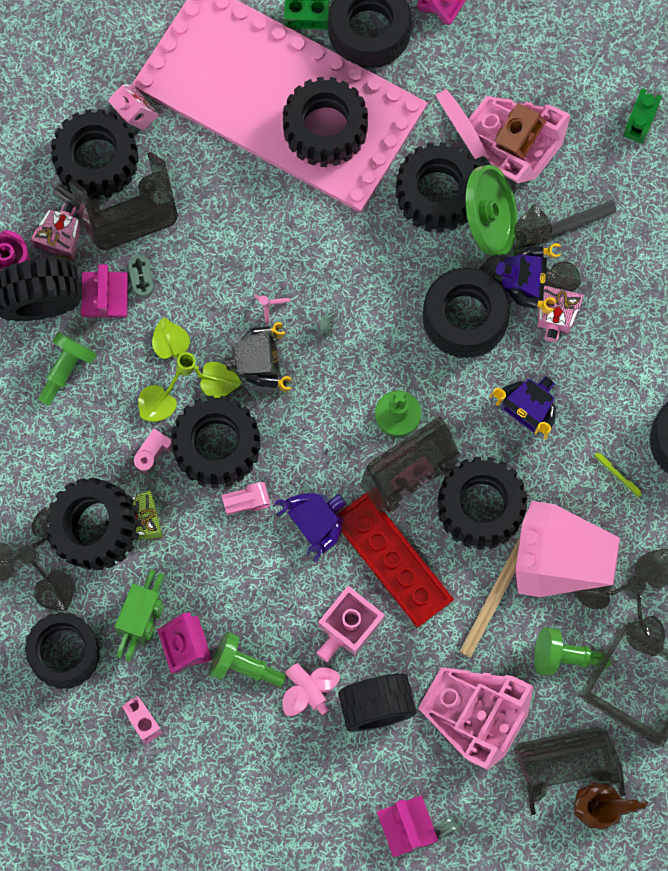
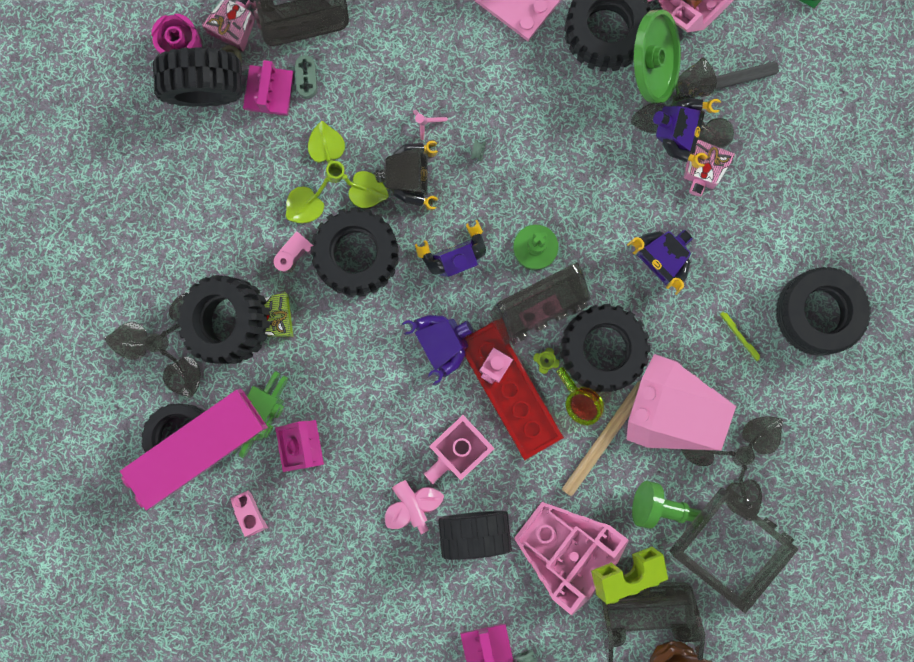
camera: 10 degrees right, 10 degrees up
(64, 365) = (228, 144): bright green piece -> none
(81, 653) = (193, 449): none -> dark pink brick
(227, 657) = (338, 467): bright green piece -> none
(251, 498) = (383, 311): bright pink piece -> none
(317, 434) = (456, 258): none -> torso
(373, 536) = (495, 366): none -> bright pink bracket
(427, 518) = (547, 354): none -> lime plate
(468, 561) = (582, 403): none -> piece
(473, 284) = (637, 134): black tyre -> none
(558, 718) = (647, 572): none -> lime arch

